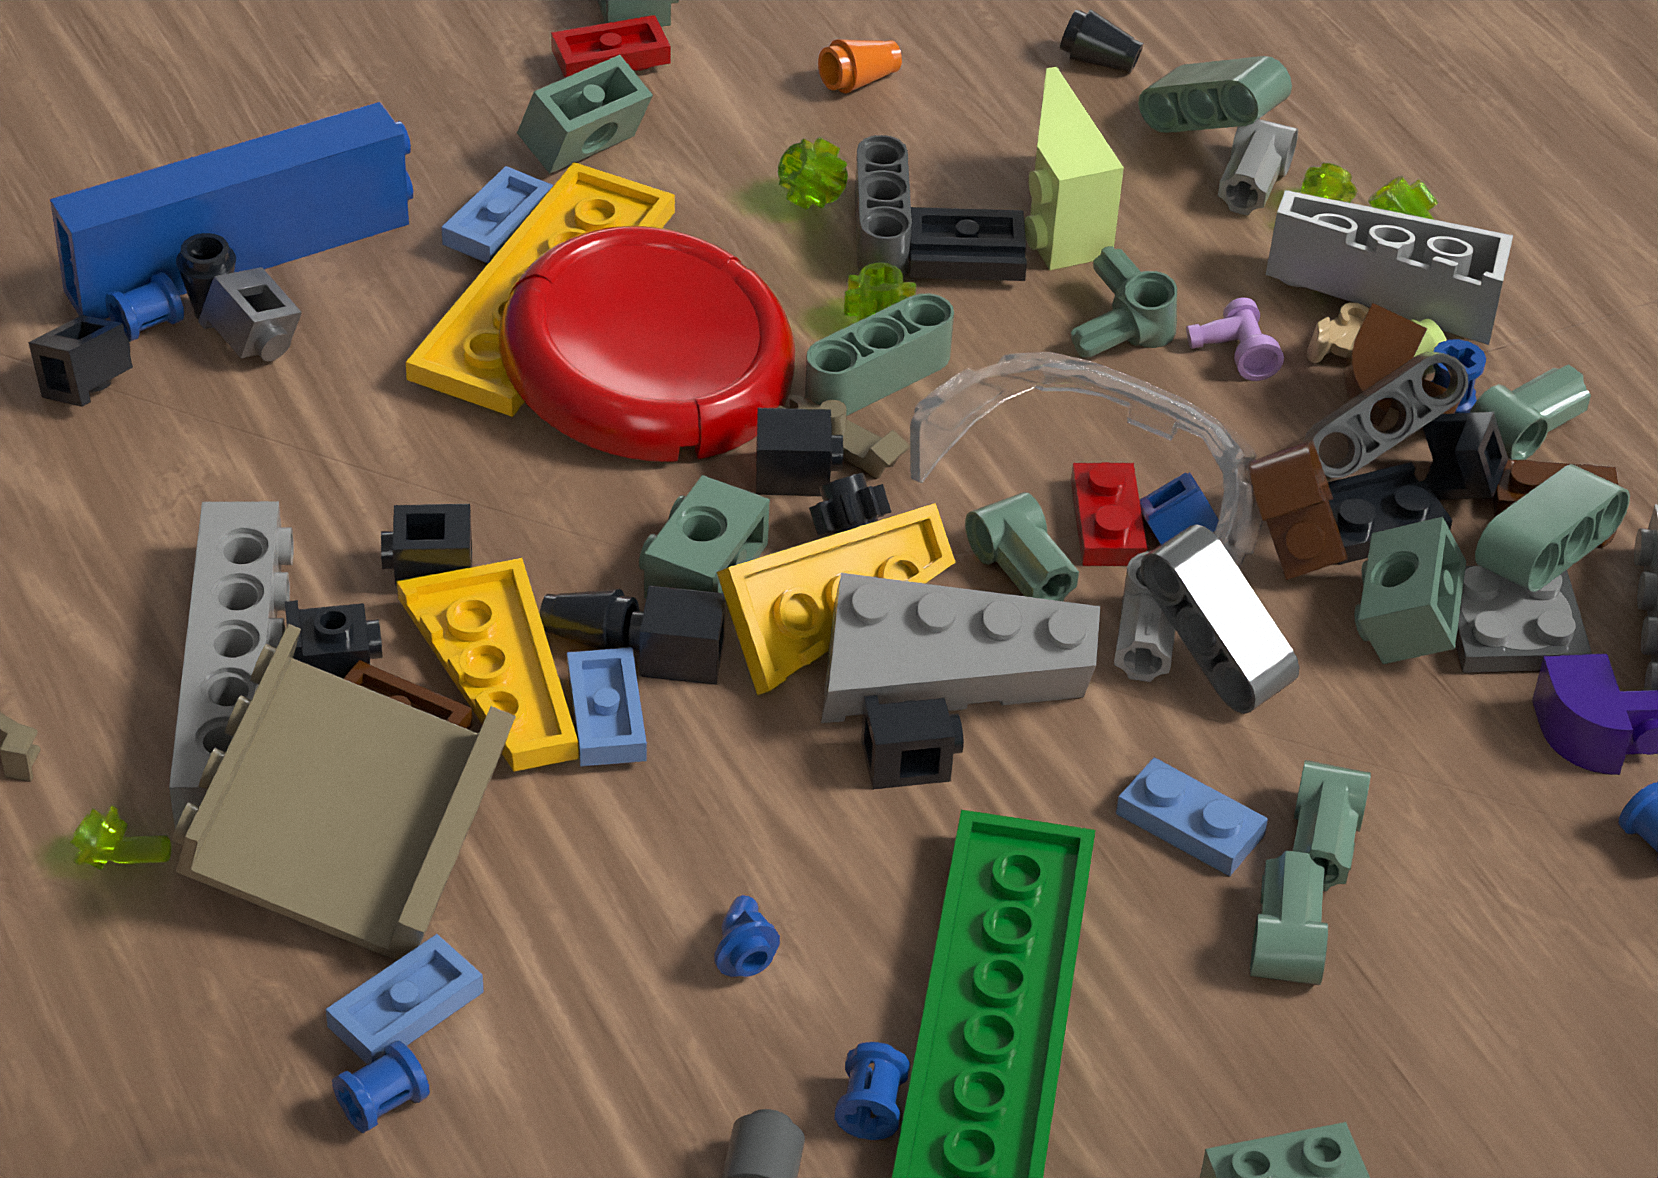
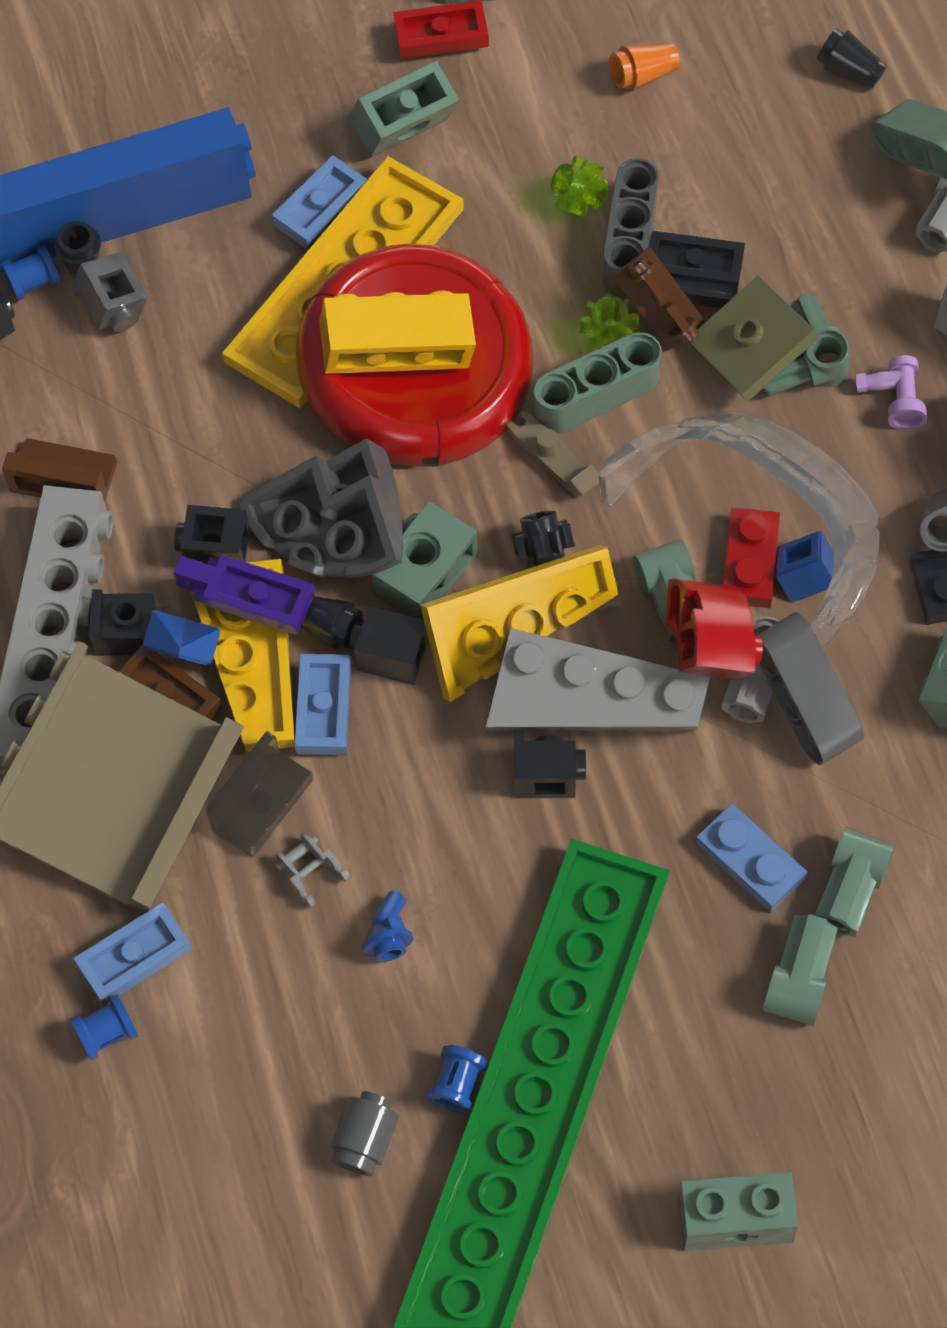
camera: 15 degrees right, 20 degrees up
(176, 499) = (57, 466): none -> reddish brown panel
(409, 655) = (181, 638): none -> blue slope
(486, 584) = (247, 591): none -> dark purple hinge
(538, 811) = (257, 796): none -> clear smoke panel
(576, 505) = (332, 514): none -> dark grey brick
(630, 300) = (396, 332): none -> yellow brick
(639, 872) = (325, 859): none -> light grey piece
(795, 451) = (512, 474): black brick -> none
(935, 263) = (659, 299): none -> reddish brown hinge
(1057, 294) = (753, 338): none -> olive plate
(1073, 182) = (786, 226): yellowish green slope -> none
(1092, 554) = (712, 629): none -> red brick
(1296, 506) = (891, 578): reddish brown brick -> none

